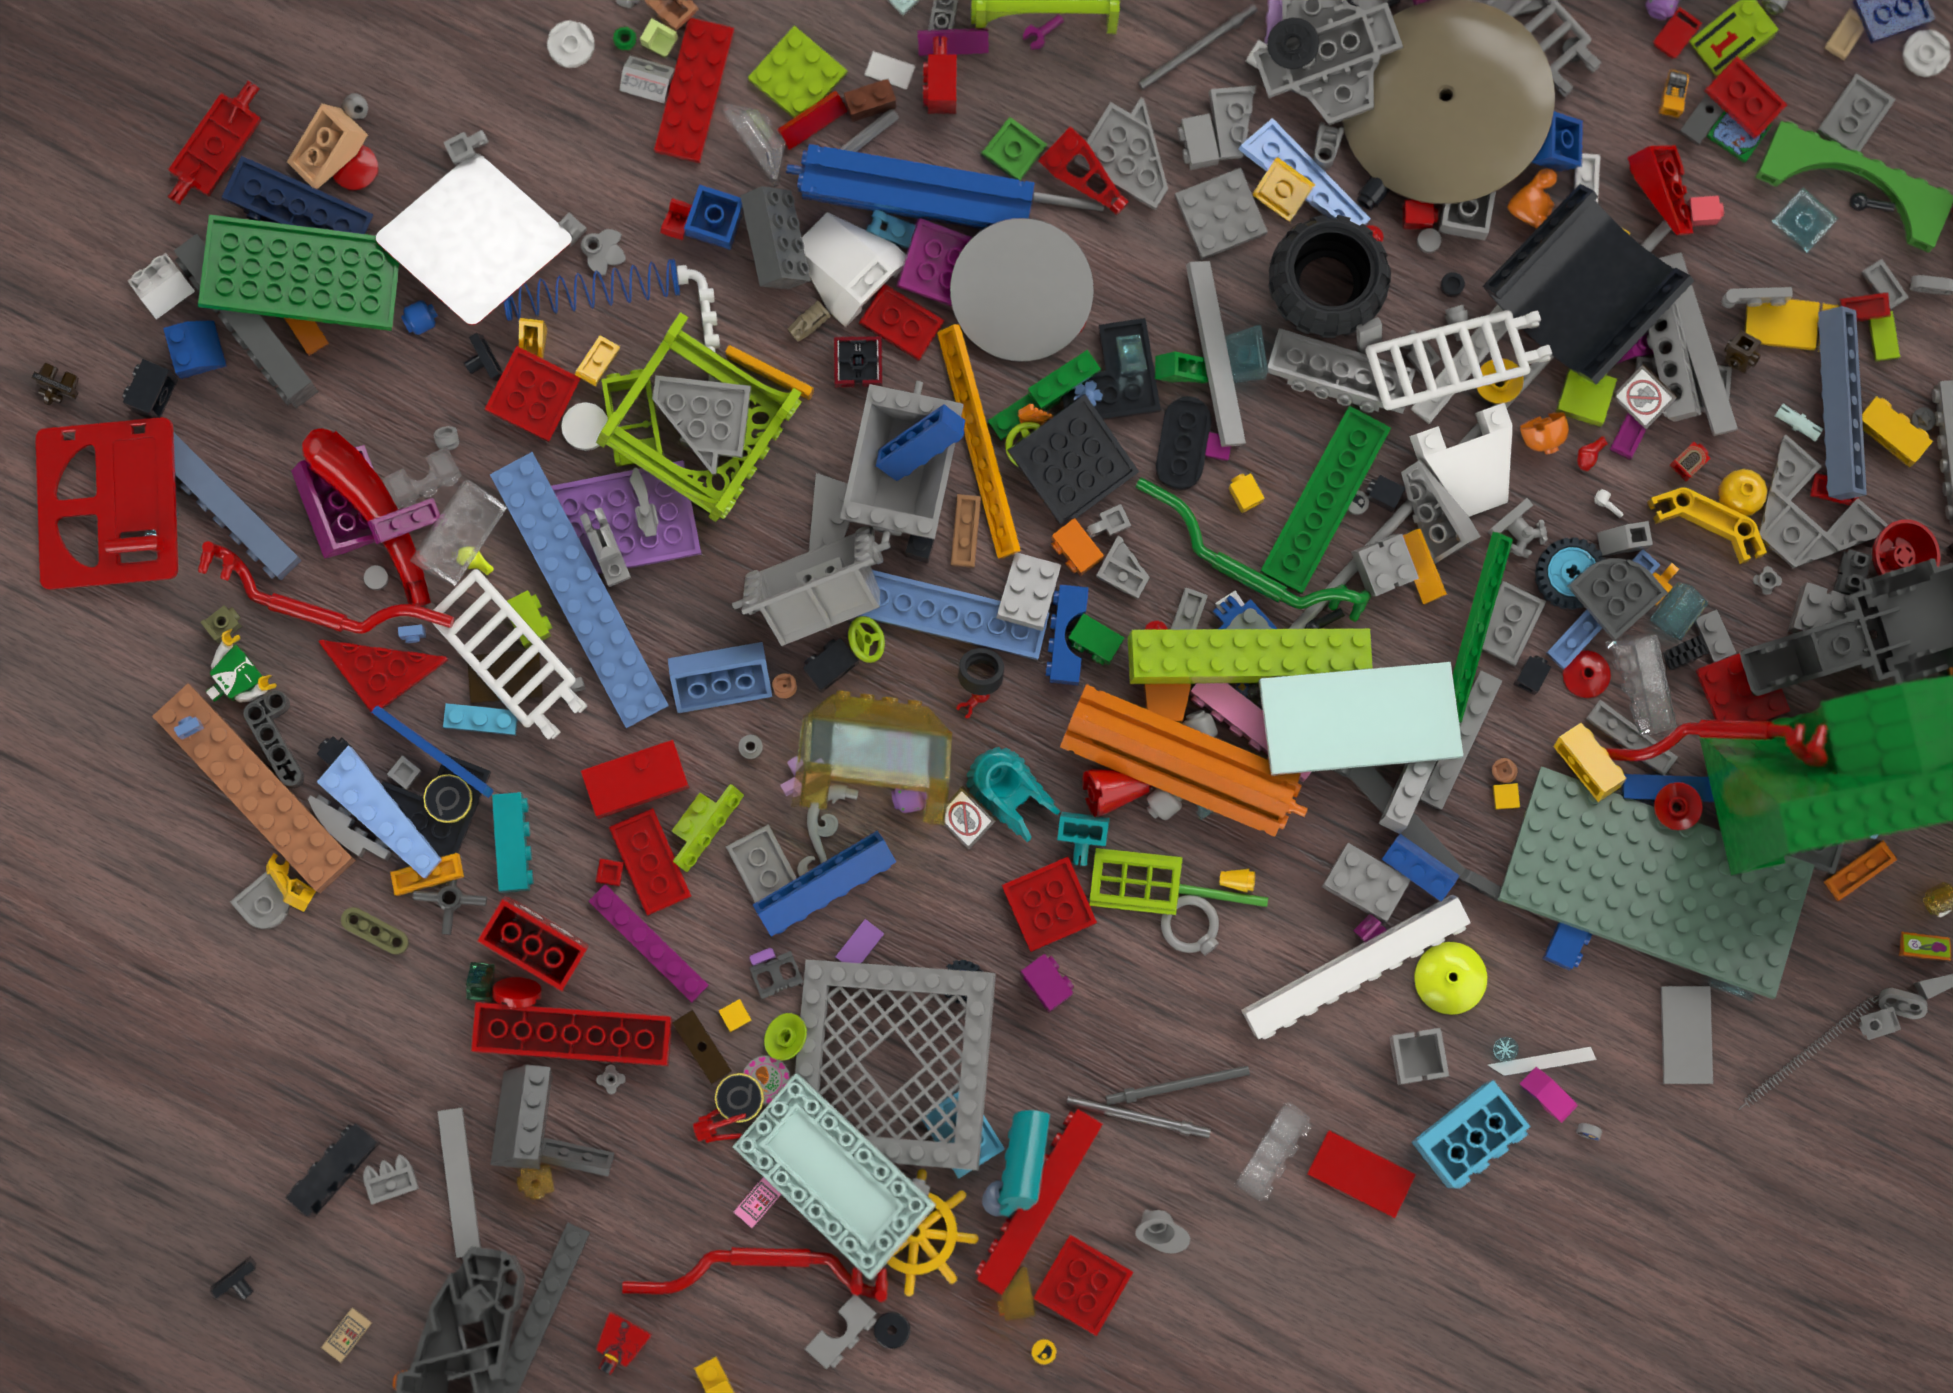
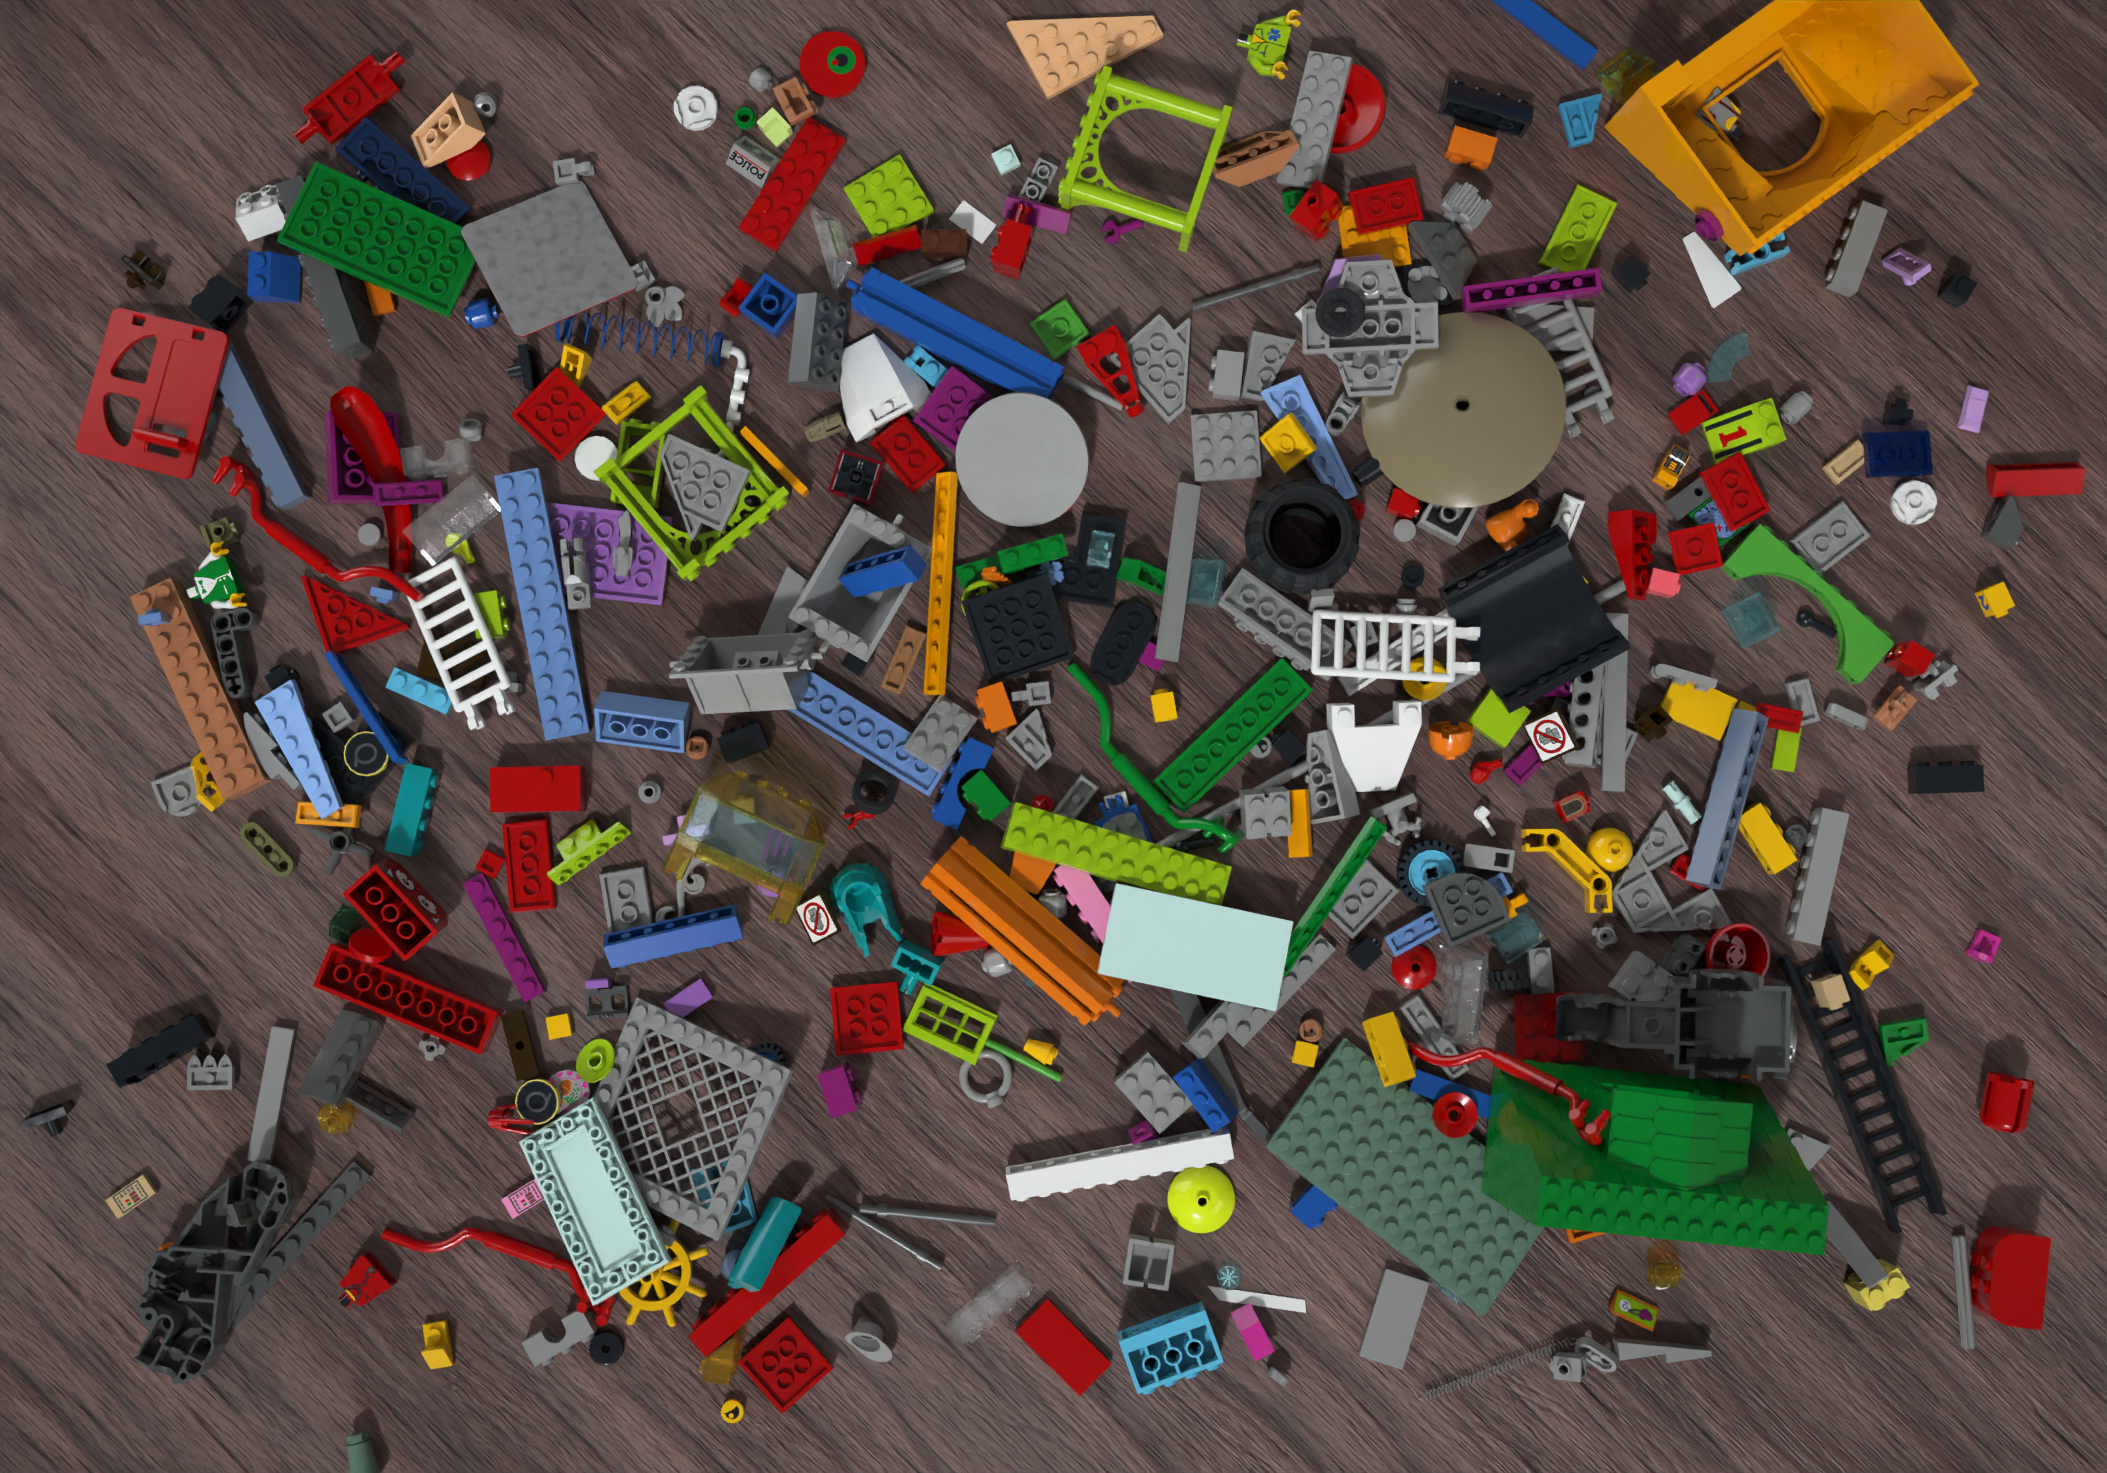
camera: 25 degrees right, 5 degrees up
(861, 640) = (776, 729): lime piece -> none
(1562, 145) = (1554, 482): blue brick -> none
(1725, 166) = (1695, 549): none -> red plate

